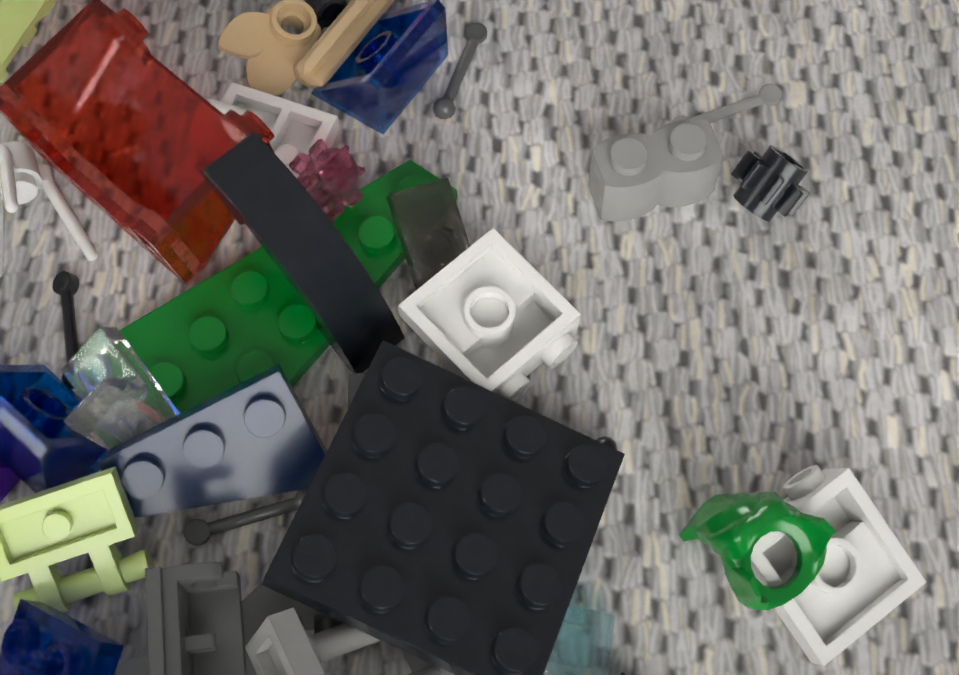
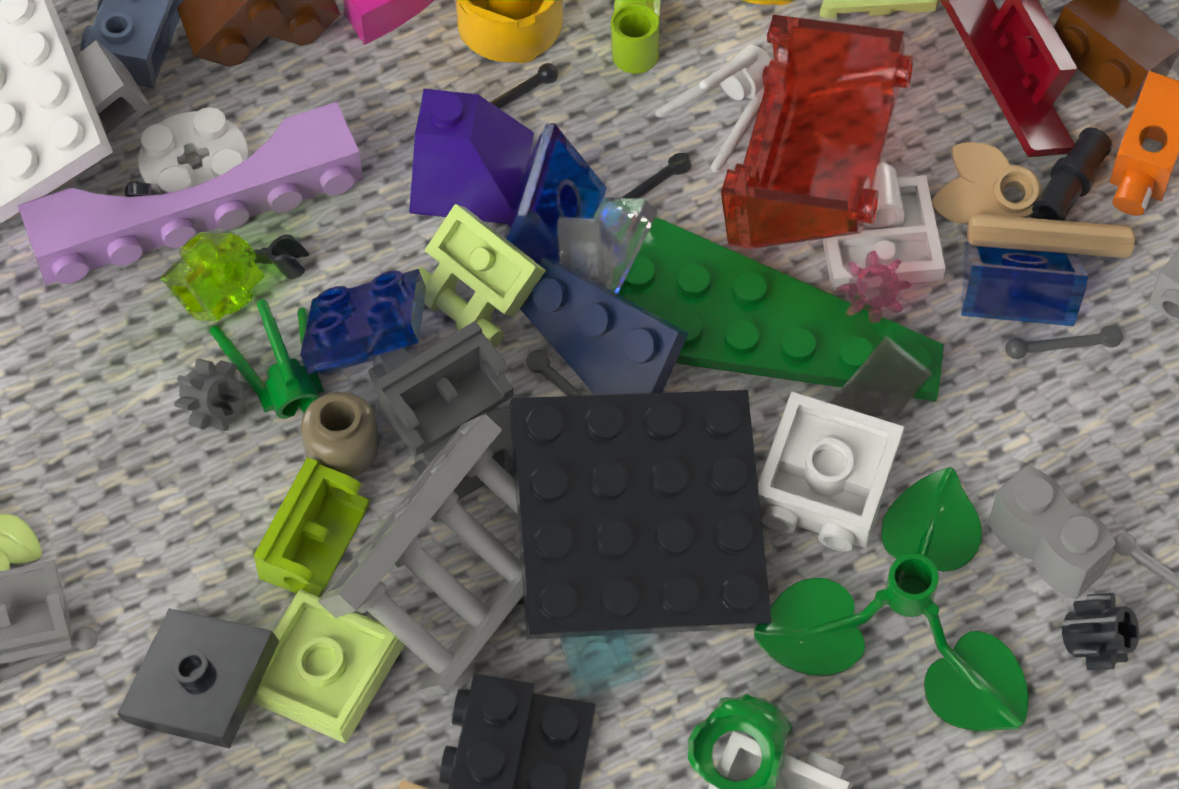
camera: 60 degrees right, 5 degrees down
(305, 249) = (788, 299): black slope -> none
(651, 419) = (927, 532): none -> green plant

